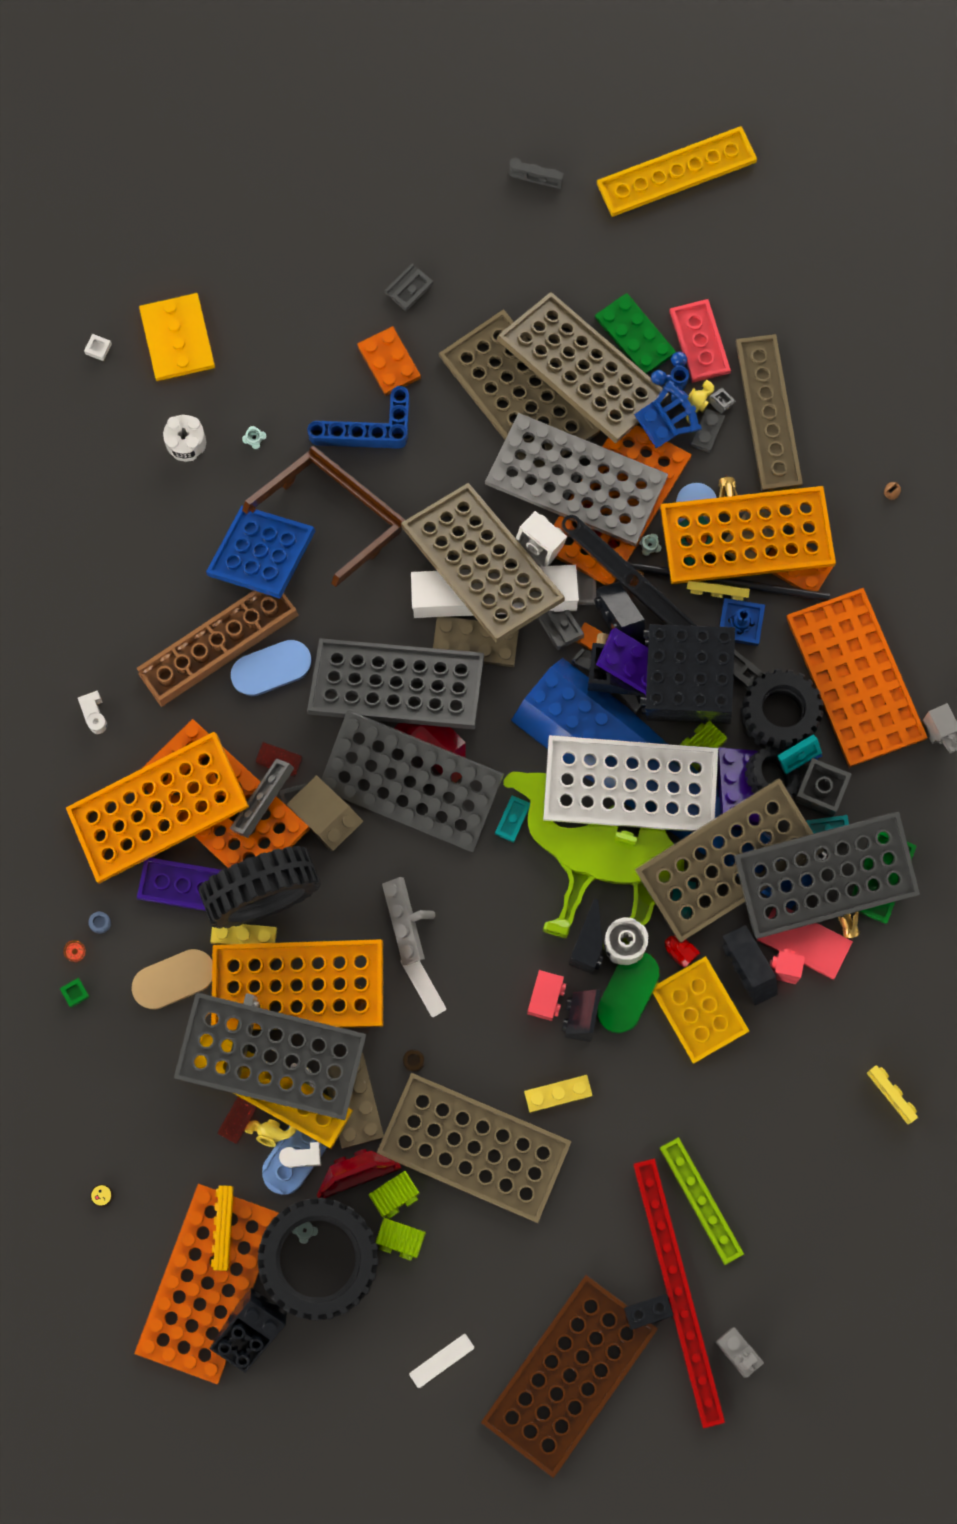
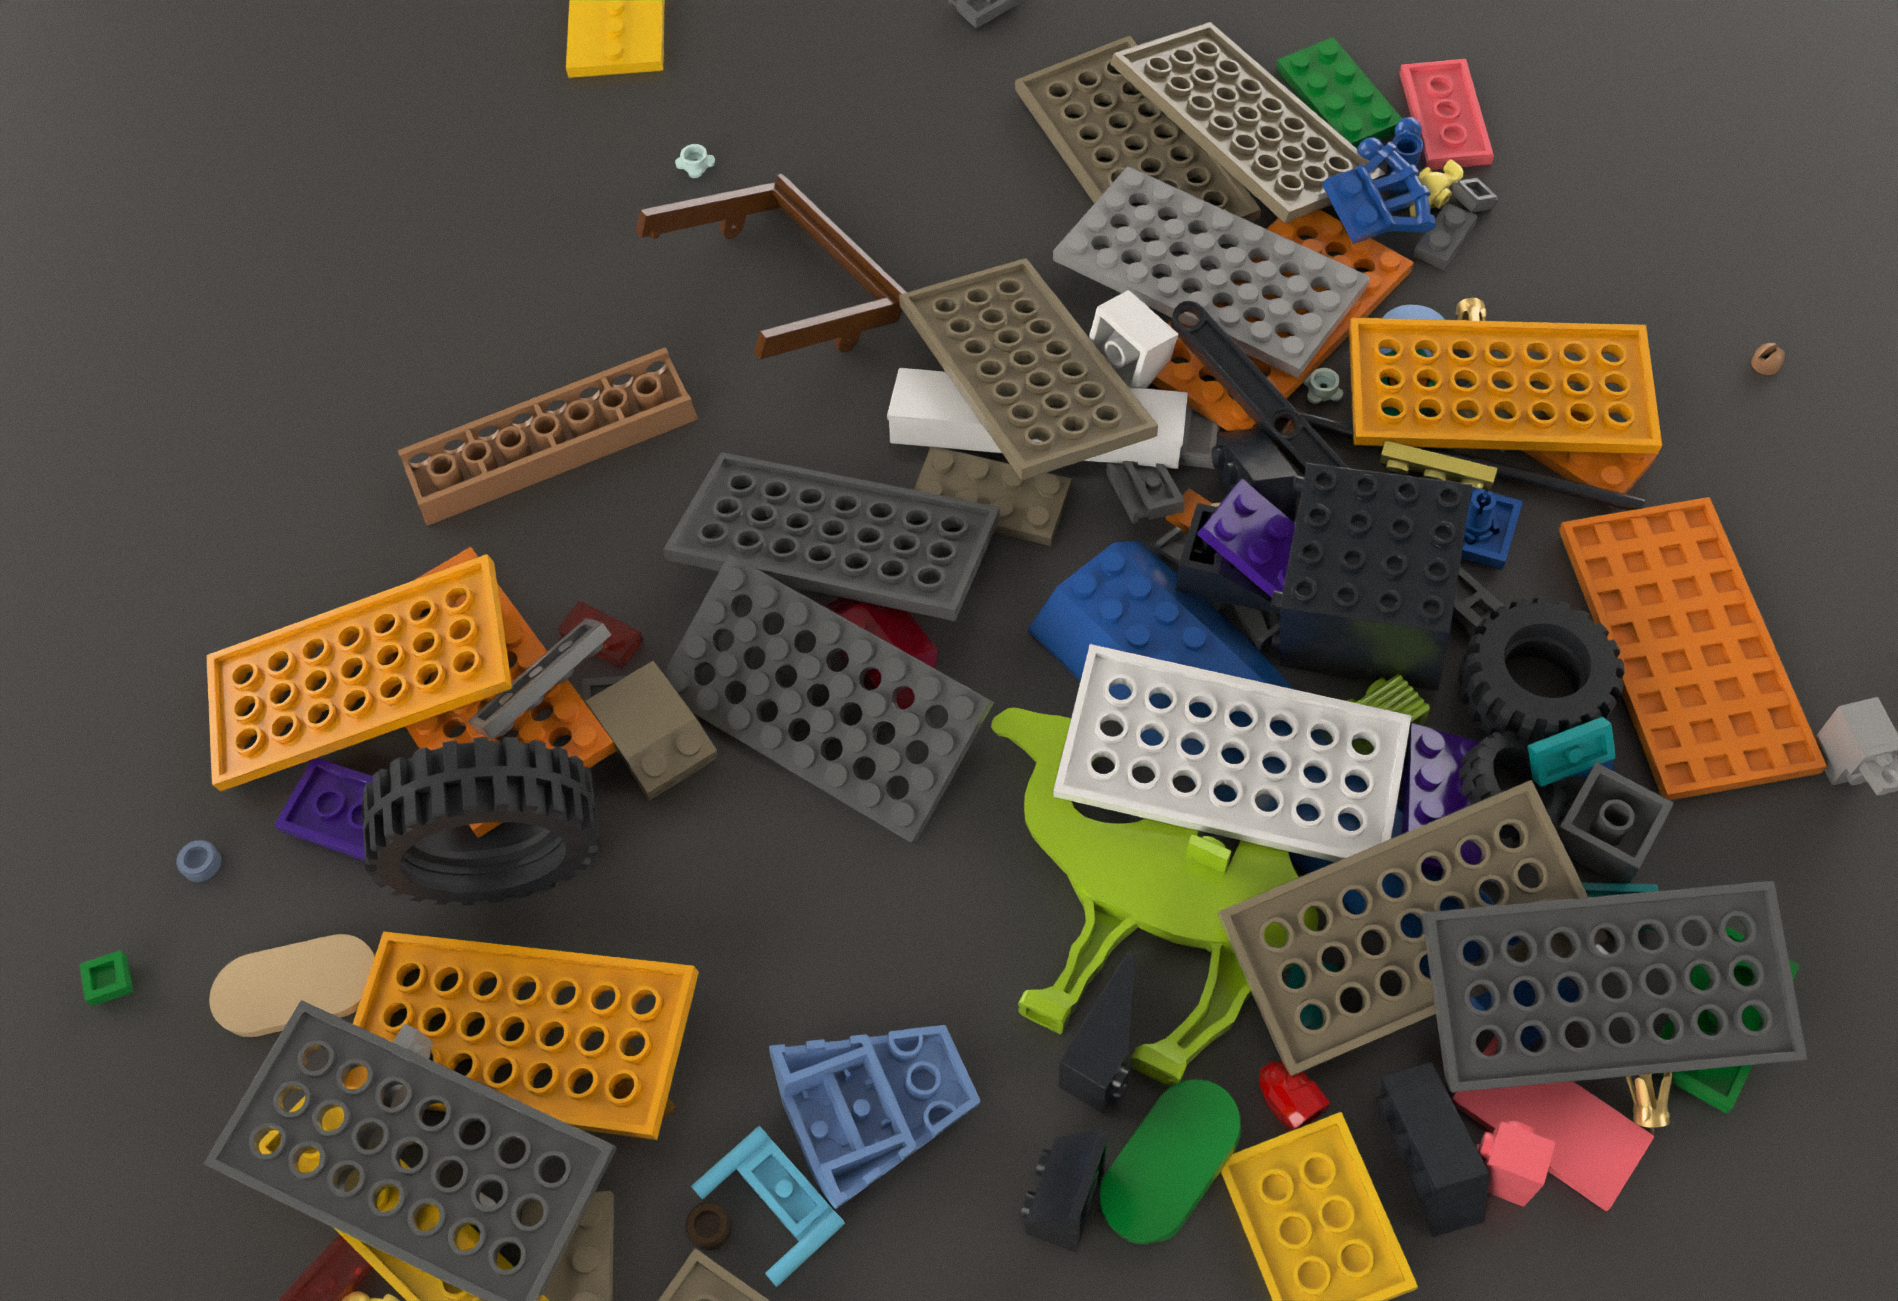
camera: 15 degrees right, 15 degrees down
(74, 951) = (136, 904): clear orange tile -> none
(91, 712) = (305, 512): white leg -> none
(97, 347) = (492, 21): white plate -> none
(194, 441) = (584, 144): white brick -> none
(244, 935) = (447, 921): light yellow plate -> none
(261, 552) = (656, 308): blue plate -> none
(271, 668) = (627, 489): light blue tile -> none
(367, 429) = (874, 173): blue beam -> none
(389, 360) = (934, 87): orange plate -> none
(404, 920) = (753, 946): light grey plate -> none
(425, 988) = (753, 1048): white sticker -> none
(446, 1038) = (783, 1191): none -> medium azure plate
(480, 989) = (870, 1102): none -> medium blue wedge
(512, 819) = (997, 795): teal plate -> none
(546, 995) = (1000, 1137): coral brick -> none
(634, 934) = (1202, 1043): white brick -> none
(769, 413) = (1554, 218): dark tan plate -> none

